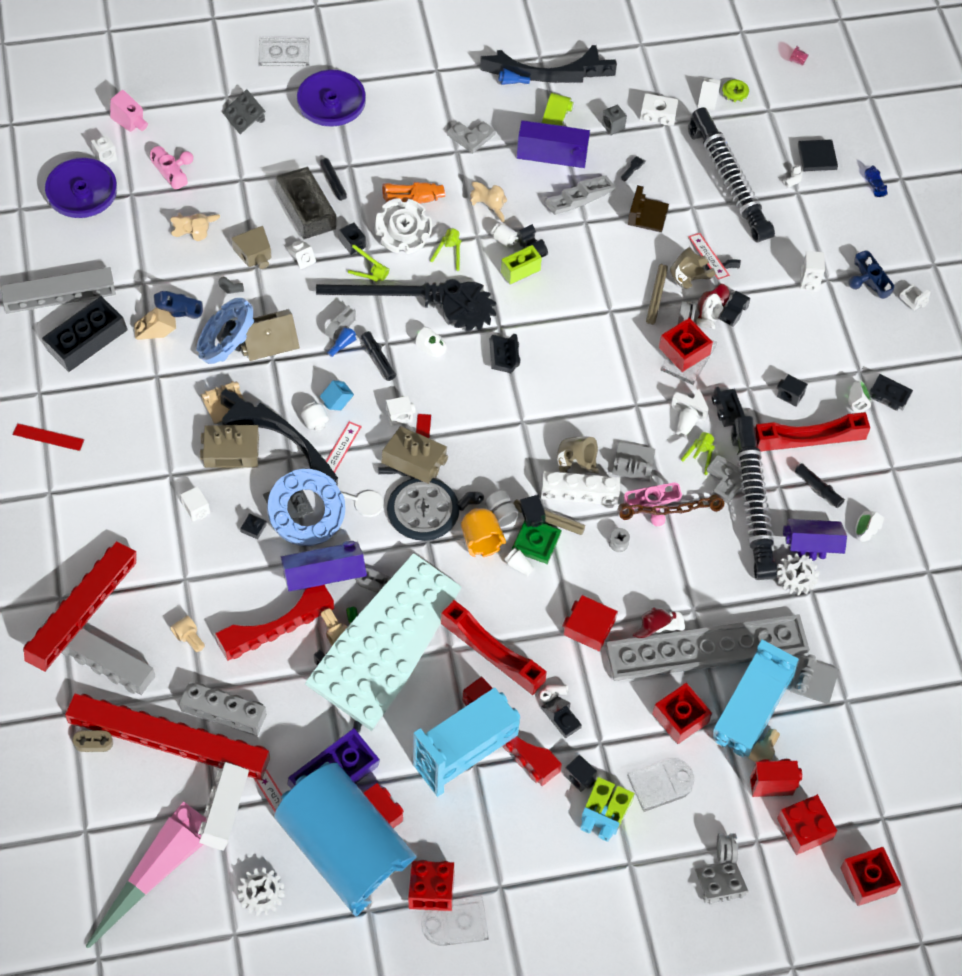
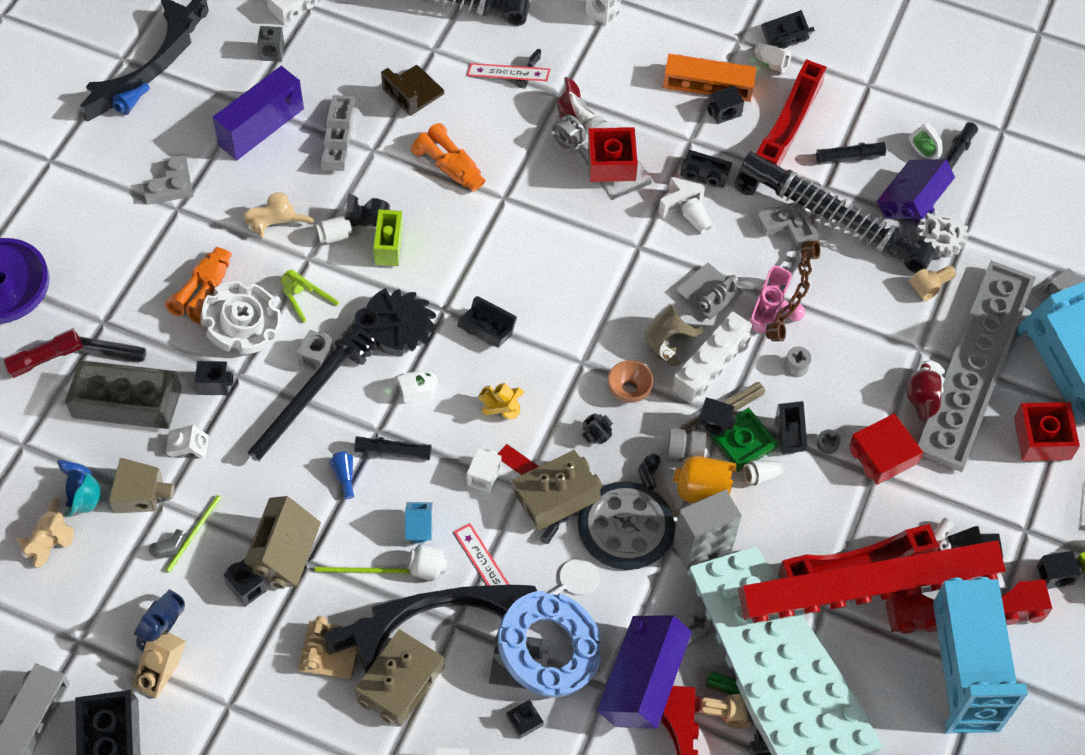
camera: 55 degrees left, 0 degrees up
(206, 344) = (215, 592): light blue plate -> none
(231, 224) = (81, 488): none -> hair
(247, 293) = (193, 533): none -> lime axle
(286, 387) = (361, 570): none -> lime axle
(312, 152) = (26, 360): none -> dark red axle
(344, 319) = (319, 458): light grey piece -> none
(379, 271) = (277, 378): lime plant -> none
(412, 275) = (314, 359): none -> light grey brick
(442, 545) = (706, 529): none -> light grey piece
(453, 392) = (501, 400): none -> yellow hips
(475, 453) = (597, 428): none -> black gear
(476, 656) = (869, 580): none -> red brick
(527, 446) = (630, 372): none -> nougat piece
(556, 109) = (213, 85): lime door -> none
(565, 557) = (792, 427): none -> black slope
(575, 596) = (831, 435): none -> dark grey bush
(610, 270) = (454, 163): none -> orange piece
(635, 164) = (340, 62): black piece -> none
(656, 294) = (518, 144): dark tan axle -> none
(689, 268) = (514, 91): dark tan piece -> none
(703, 444) = (734, 216): lime plant -> none
(735, 308) = (594, 92): black leg -> none
(747, 585) = (929, 283): none -> tan axle
(807, 368) = (708, 76): none -> orange brick
(880, 549) = (961, 143): none -> black pin

